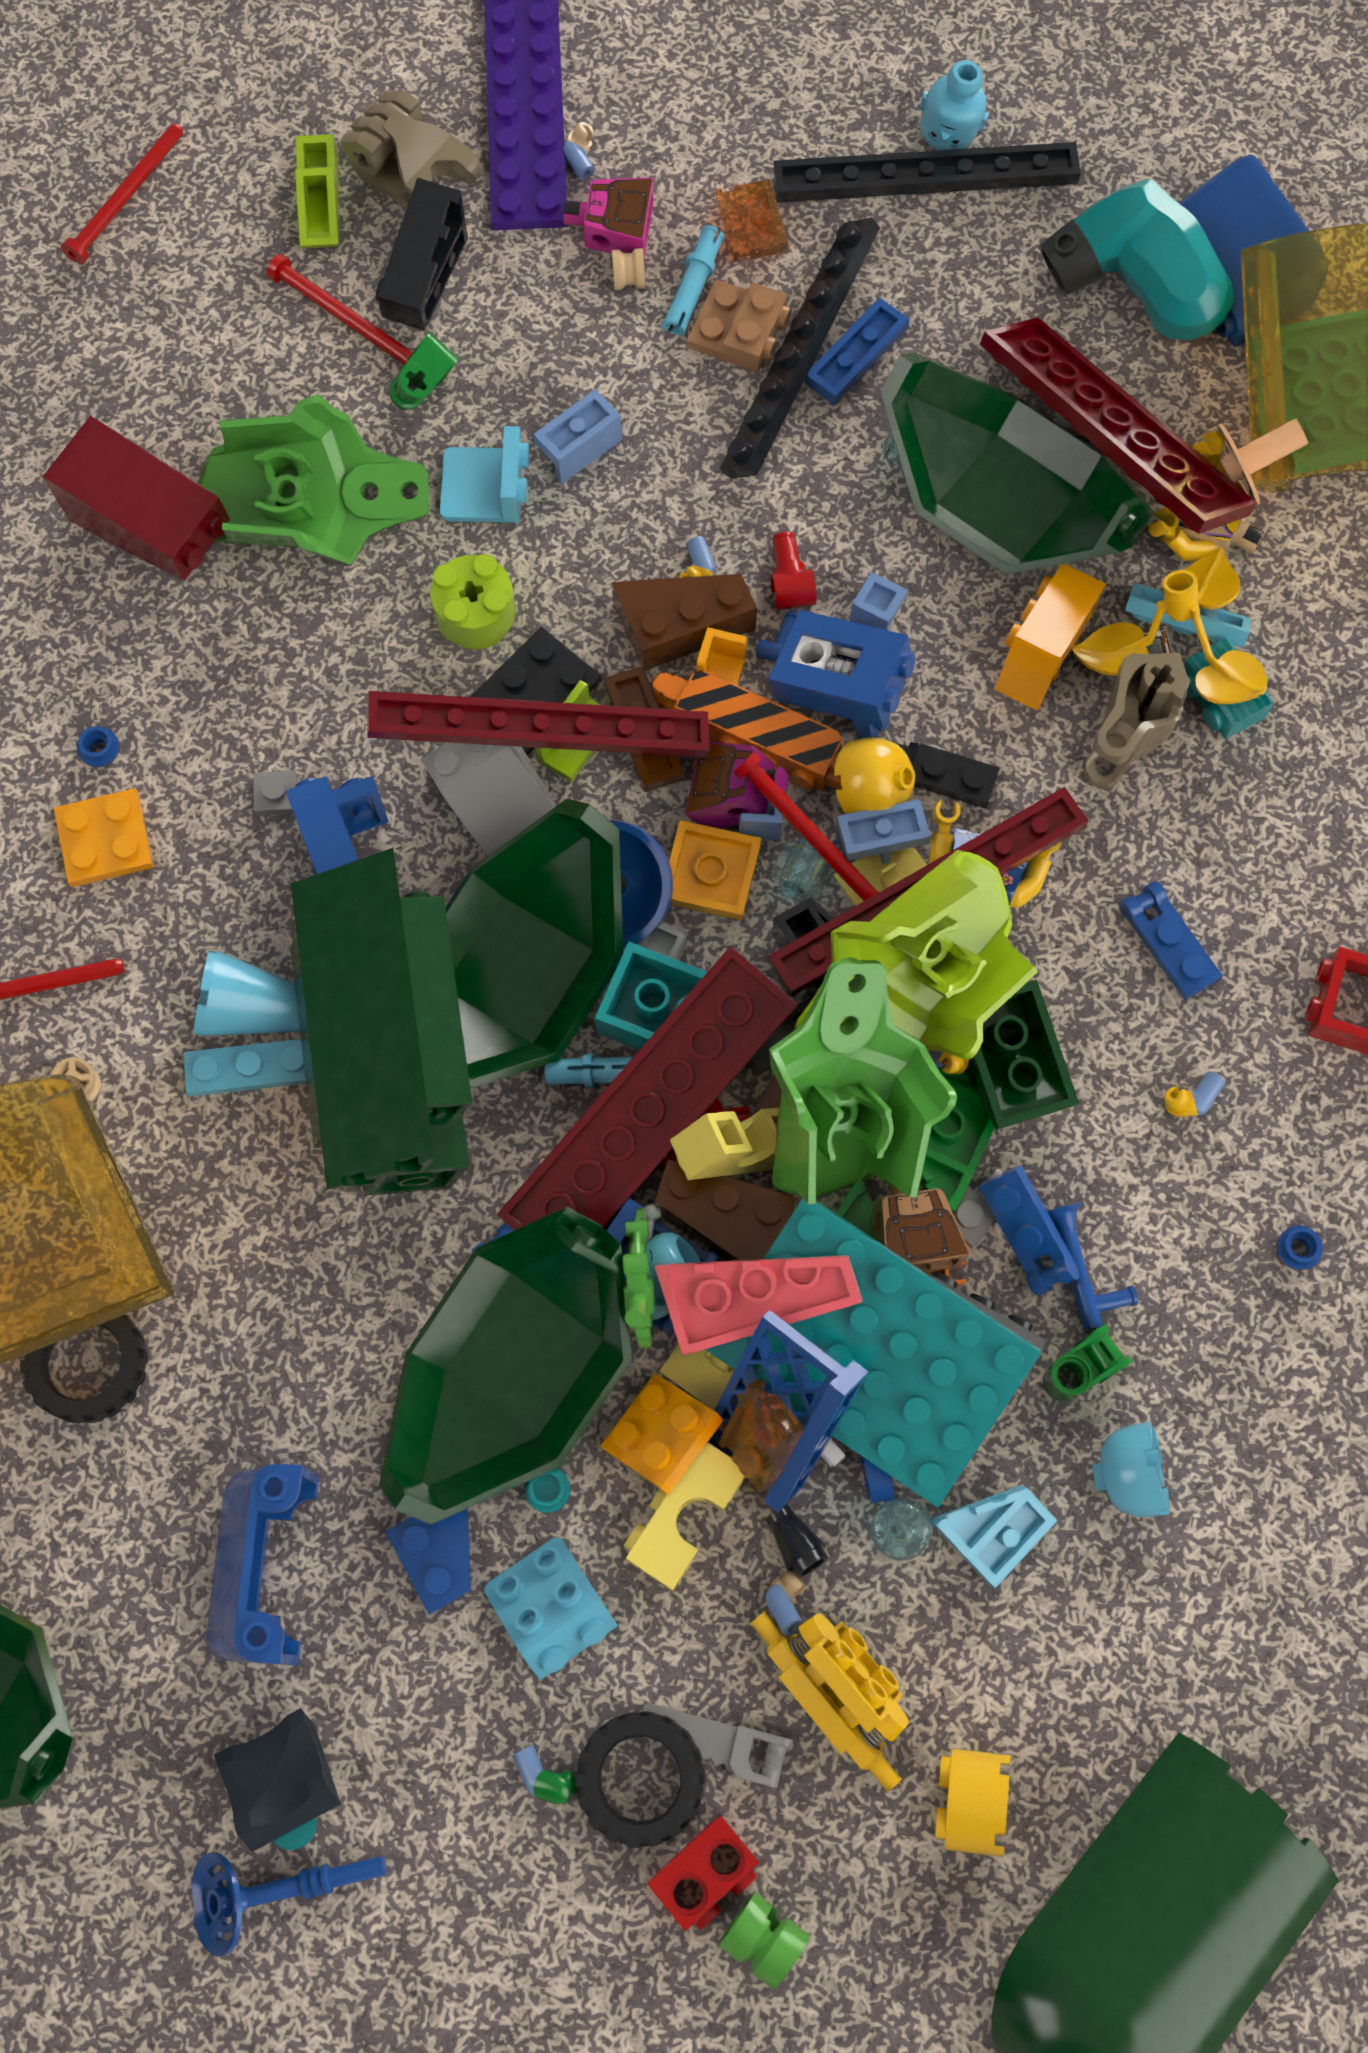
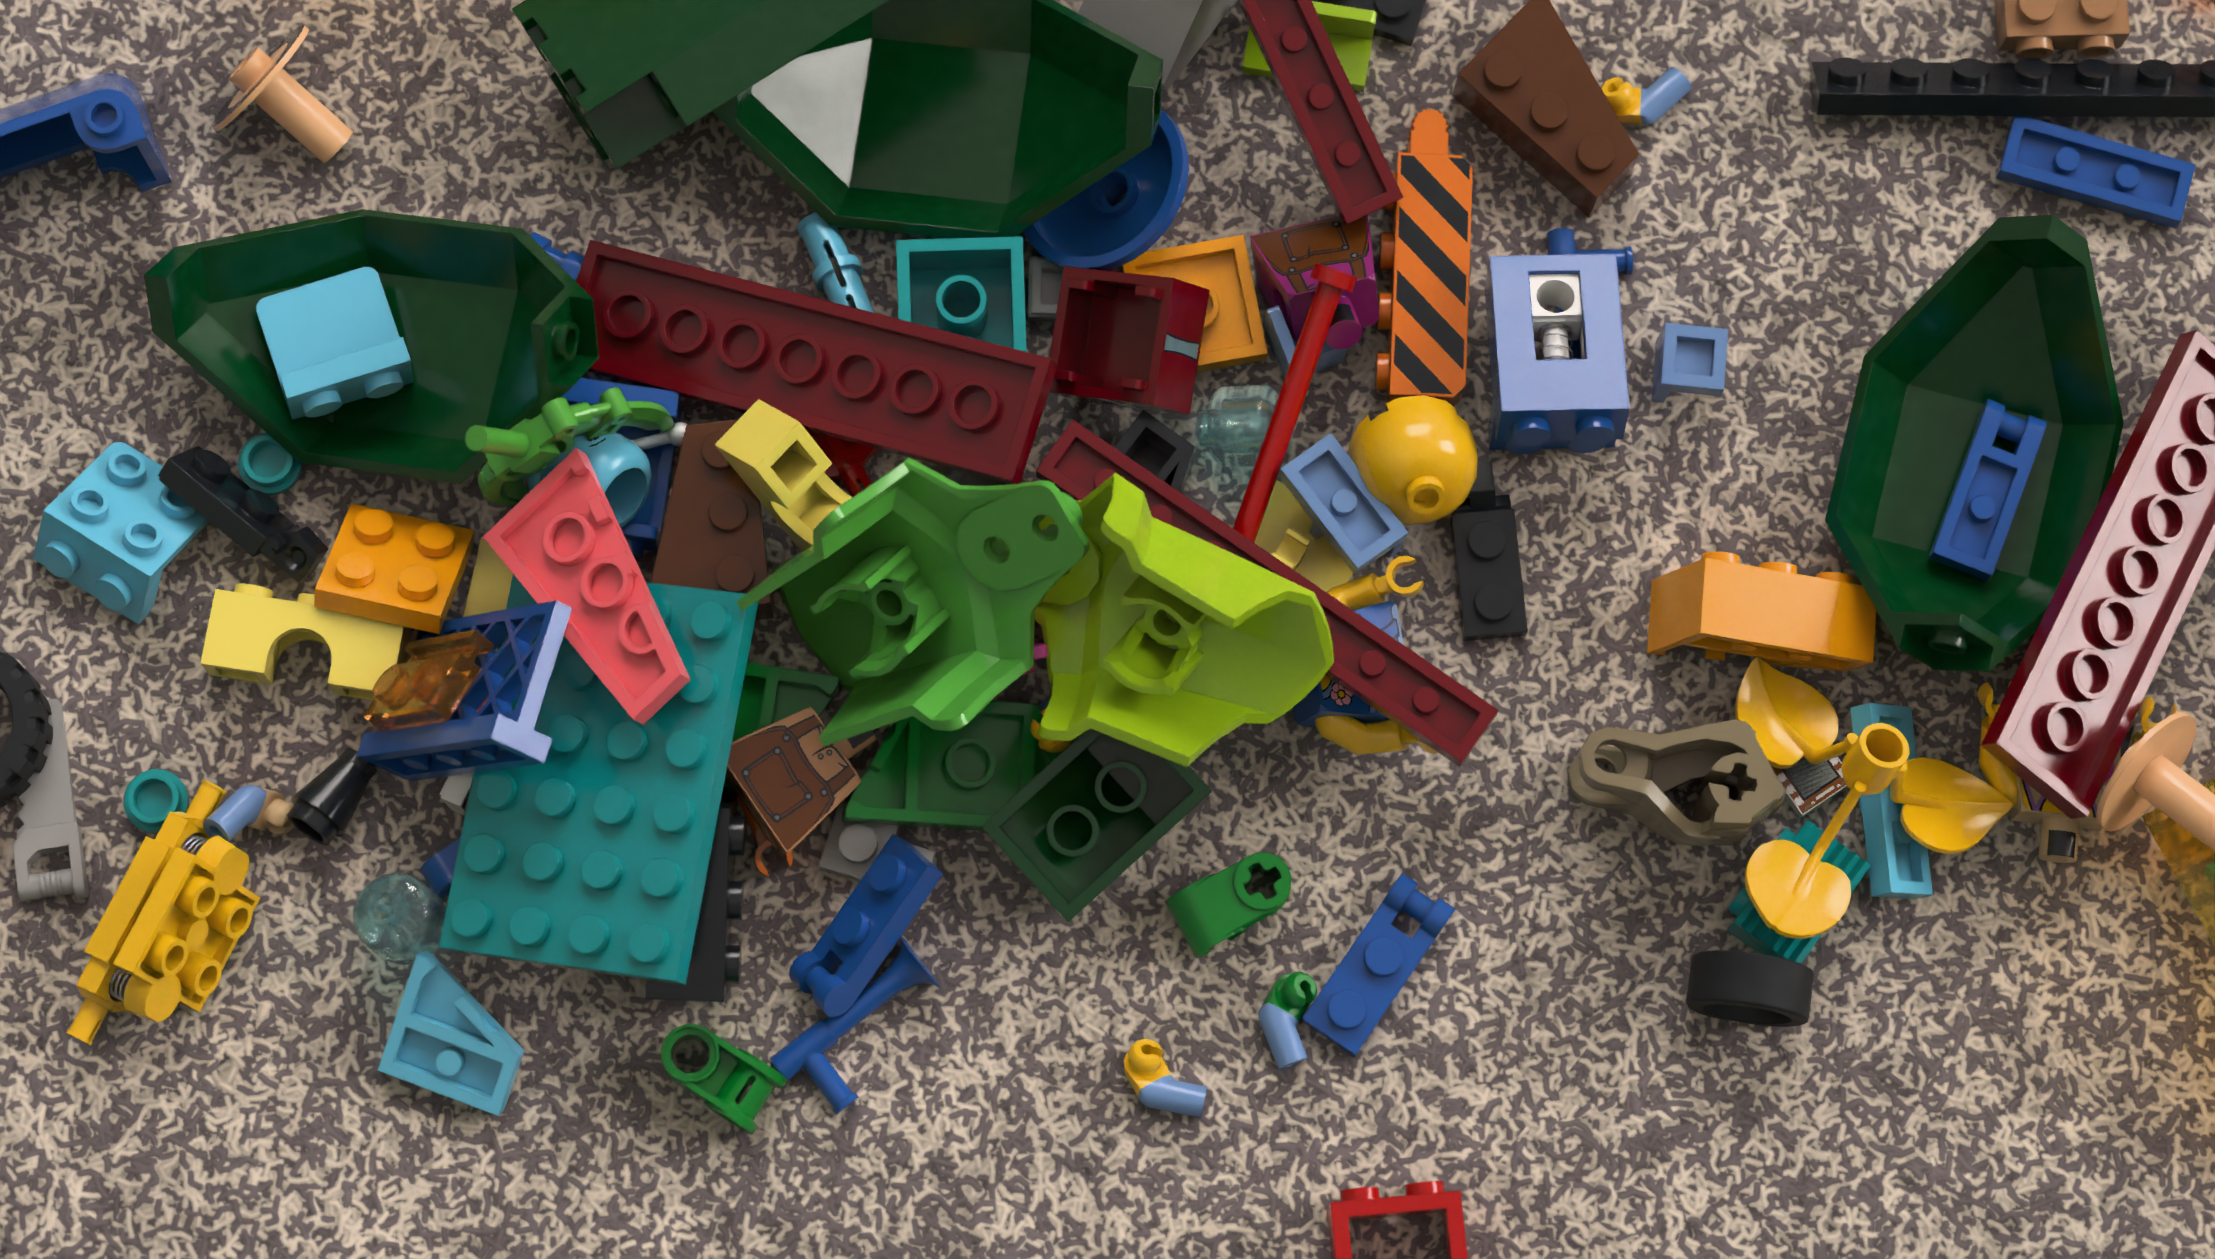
camera: 60 degrees right, 5 degrees up
(289, 1378) = (266, 83): none -> light nougat piece
(435, 1557) = (126, 368): blue wing -> none
(491, 1408) = (334, 343): none -> medium azure bracket
(576, 1520) = (242, 512): none -> black hinge
(634, 690) = (1389, 103): reddish brown plate -> none
(721, 908) = (1127, 339): none -> dark red container
(723, 654) = (1507, 188): light orange panel -> none
(746, 1664) = (152, 797): none -> teal plate
(791, 580) = (1678, 234): red pin -> none
(974, 1803) = (95, 1140): yellow brick -> none
(1024, 484) = (1987, 492): none -> blue plate
(1099, 1012) = (1220, 905): none -> green piece
(1133, 1472) = (598, 1186): medium azure cylinder -> none
(1178, 1010) = (1282, 1013): none -> arm
(1276, 733) = (1750, 988): none -> black tyre

